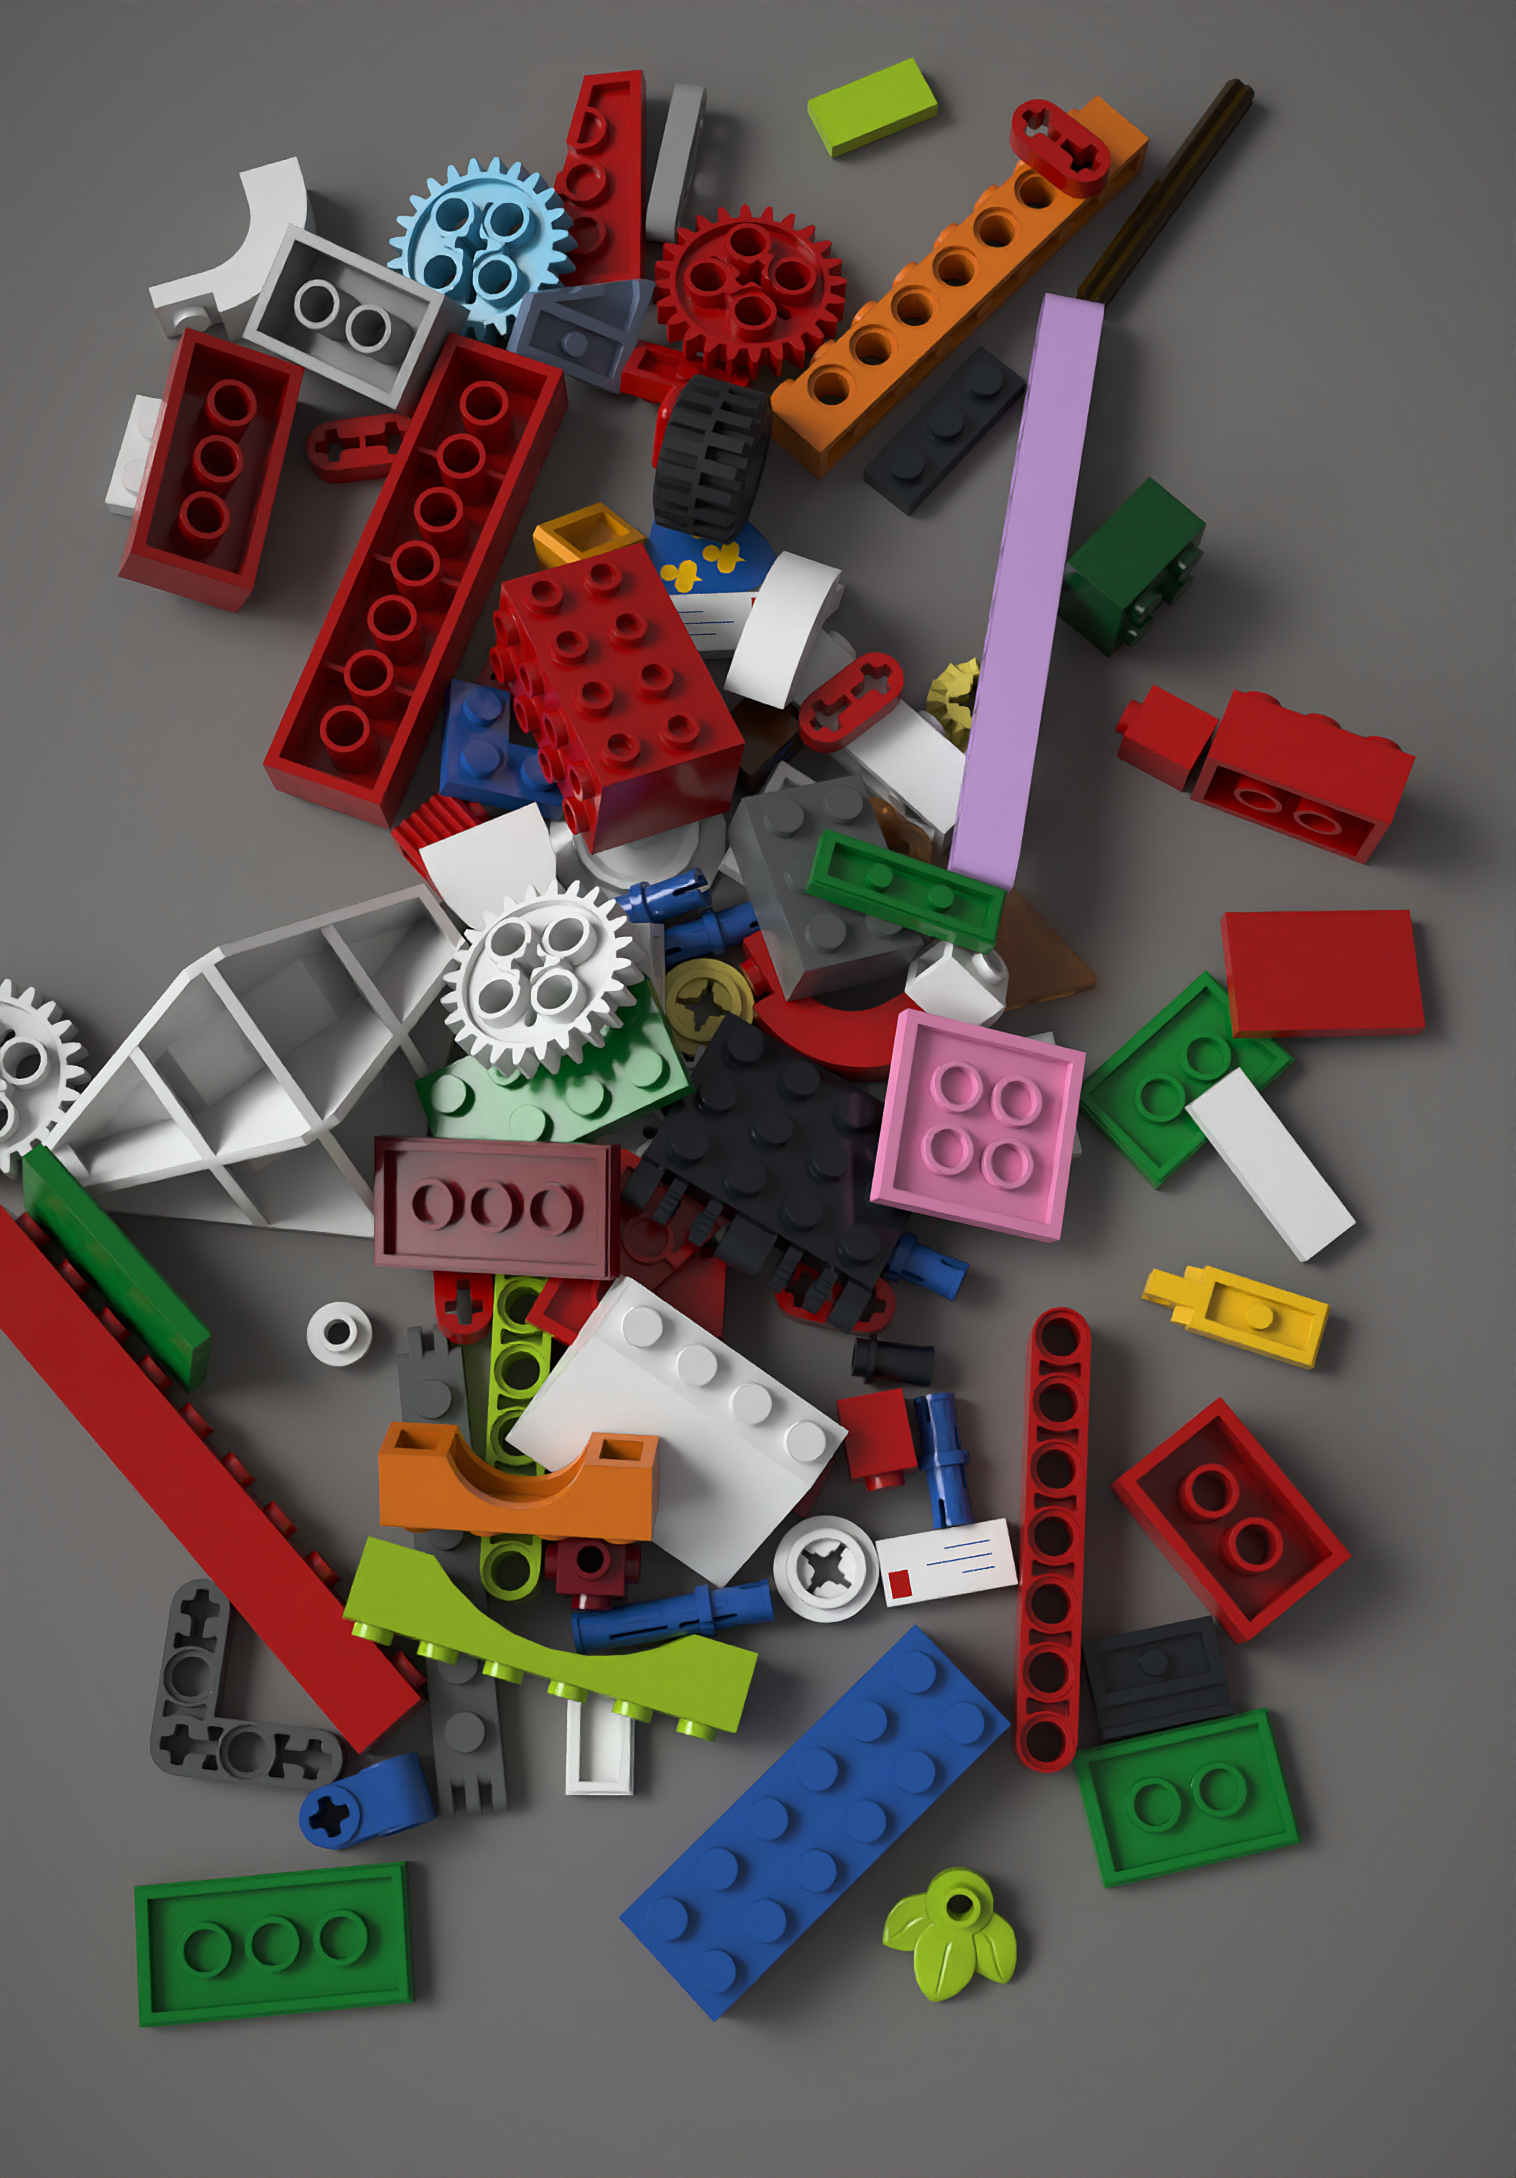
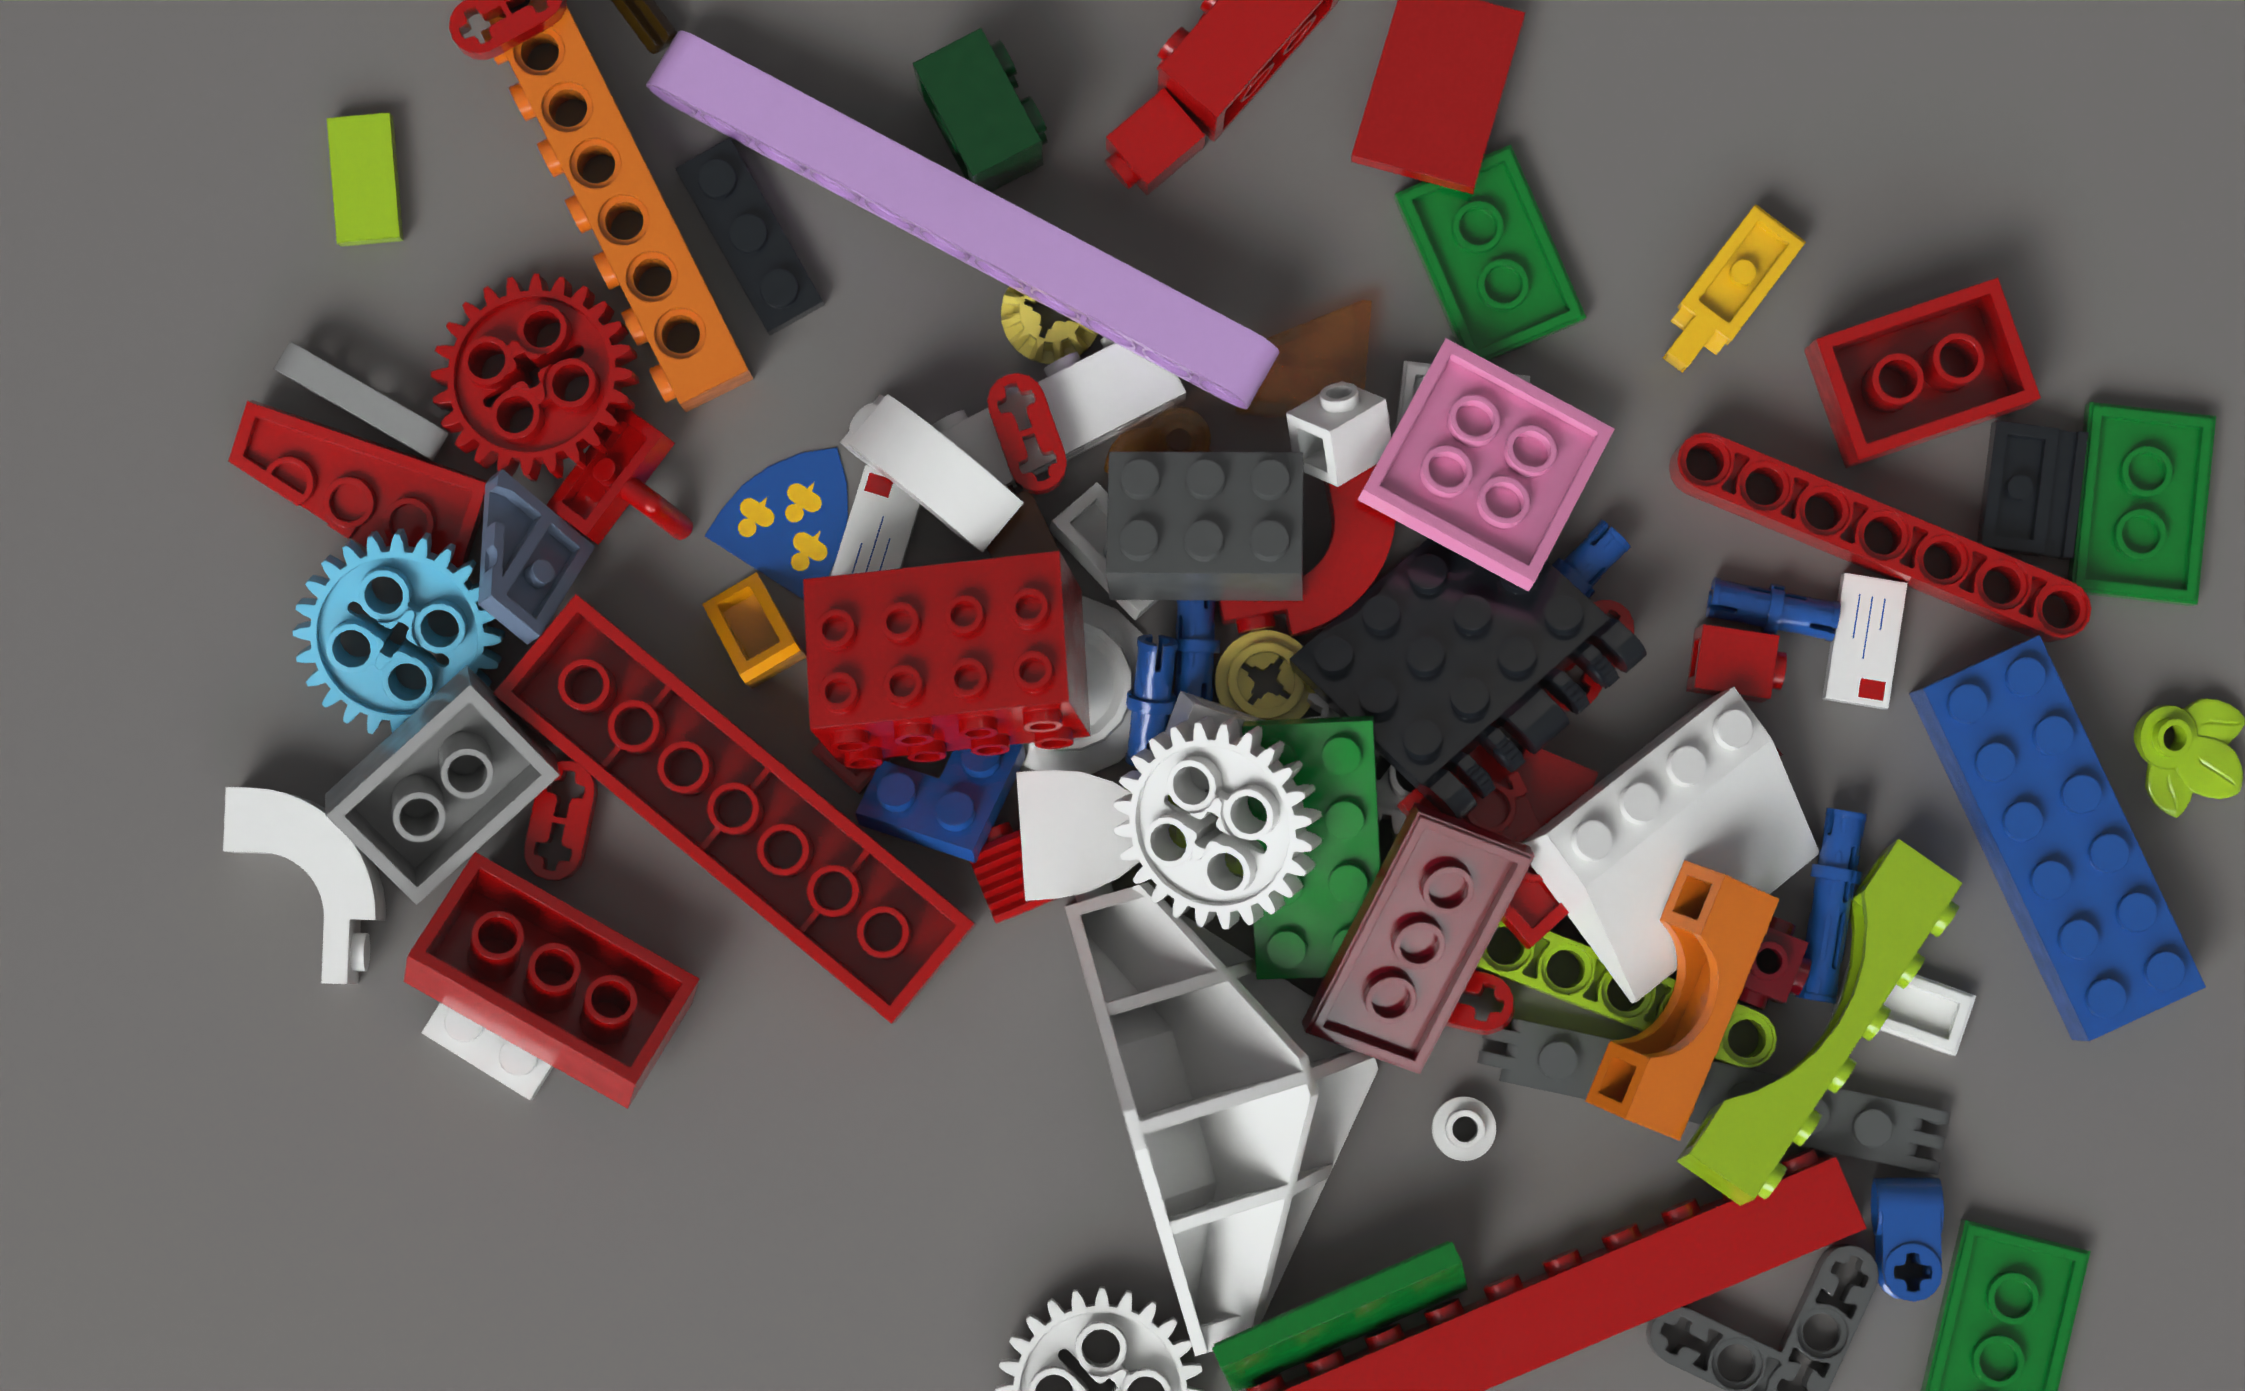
camera: 75 degrees left, 10 degrees up
(712, 459) = (724, 478): black tyre -> none
(858, 1565) = (1863, 758): white gear -> none
(892, 1361) = (1667, 623): black pin -> none
(906, 891) = (1253, 451): green tile -> none
(1270, 1165) = (1603, 207): white tile -> none

